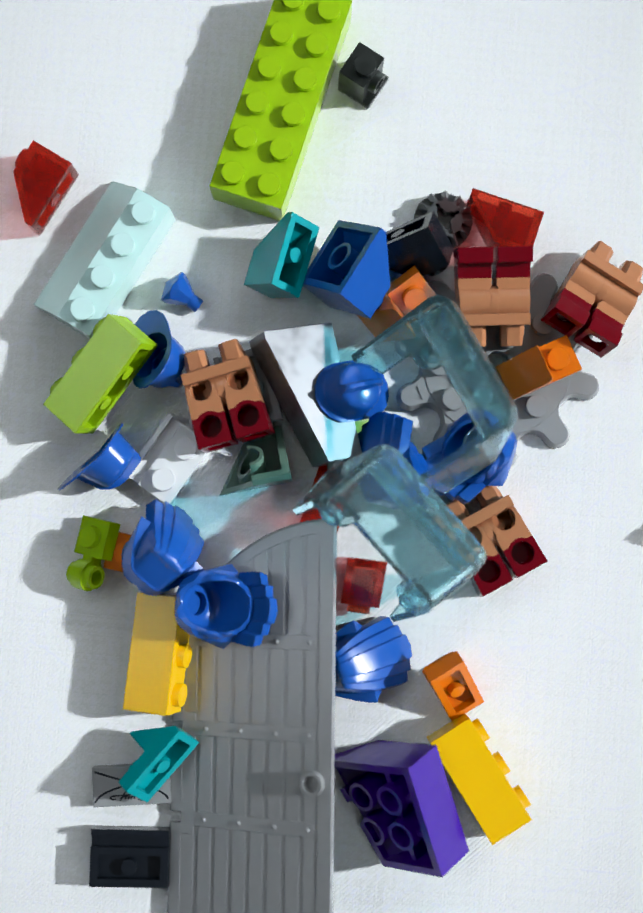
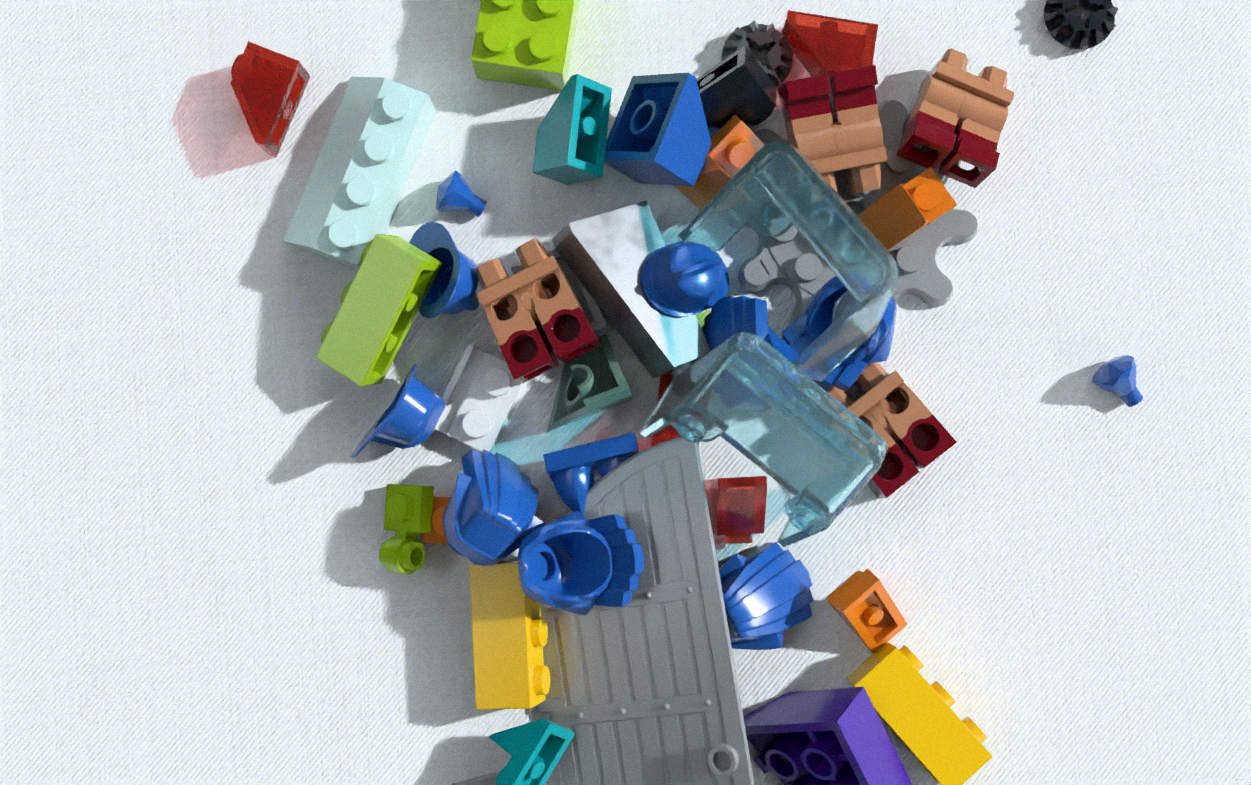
camera: 10 degrees left, 0 degrees up
(235, 529) = (574, 467): none -> blue tile

